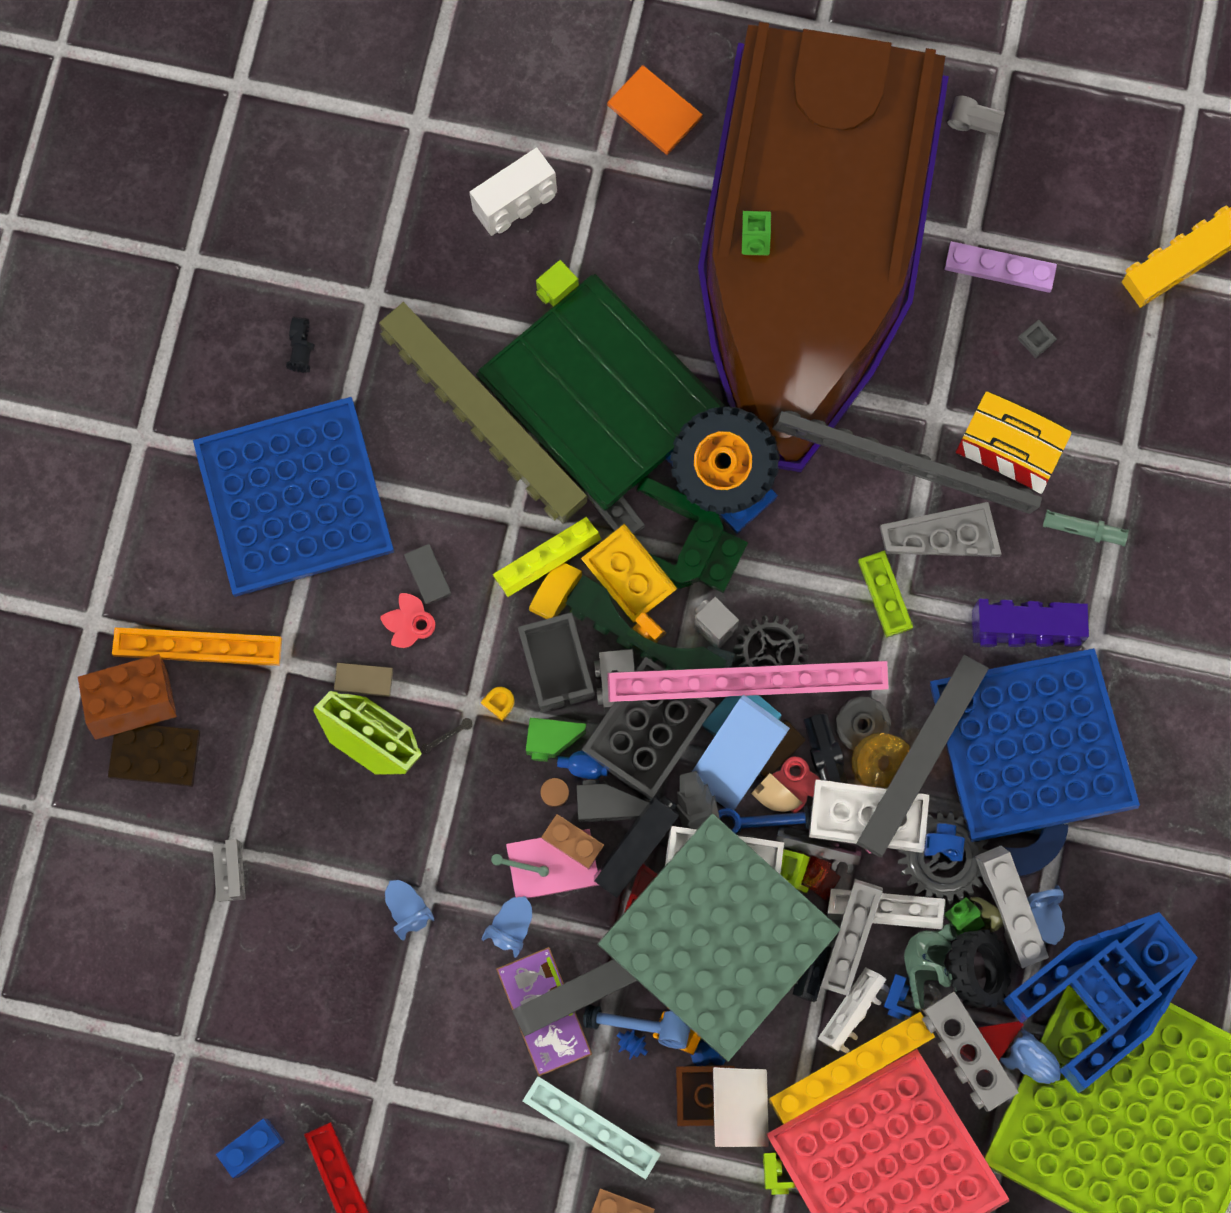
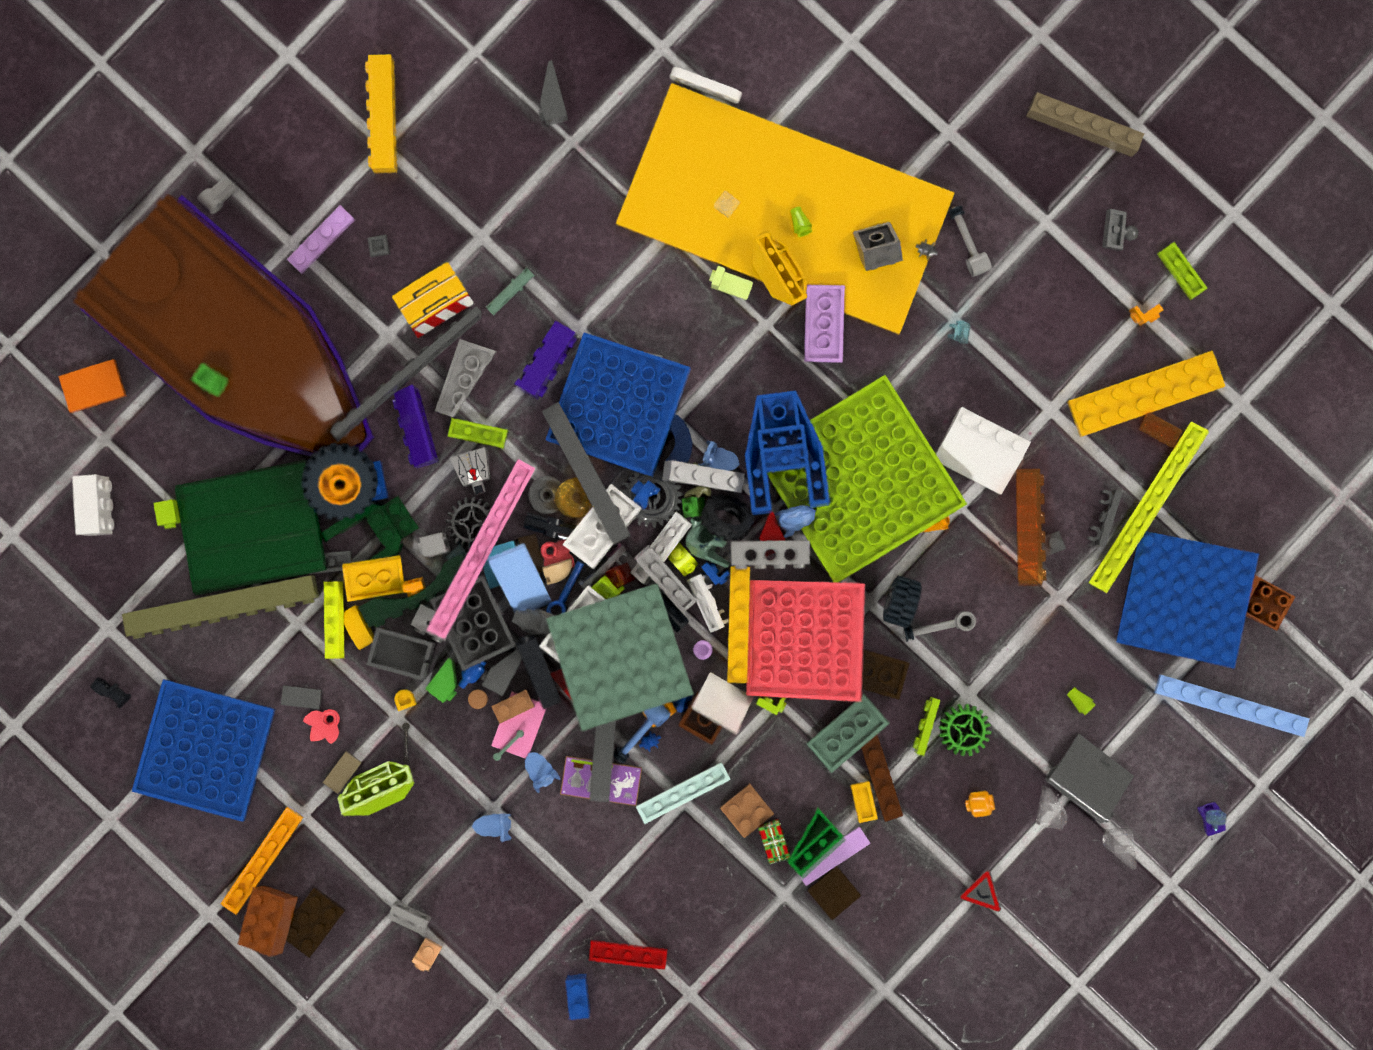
camera: 60 degrees left, 10 degrees up
(194, 921) = (426, 954): none -> light nougat bracket
(789, 1042) = (702, 649): none -> lavender tile
(838, 614) = (473, 469): none -> light grey torso
(846, 513) = (415, 426): none -> dark purple slope
(888, 946) = (682, 560): none -> neon yellow bracket

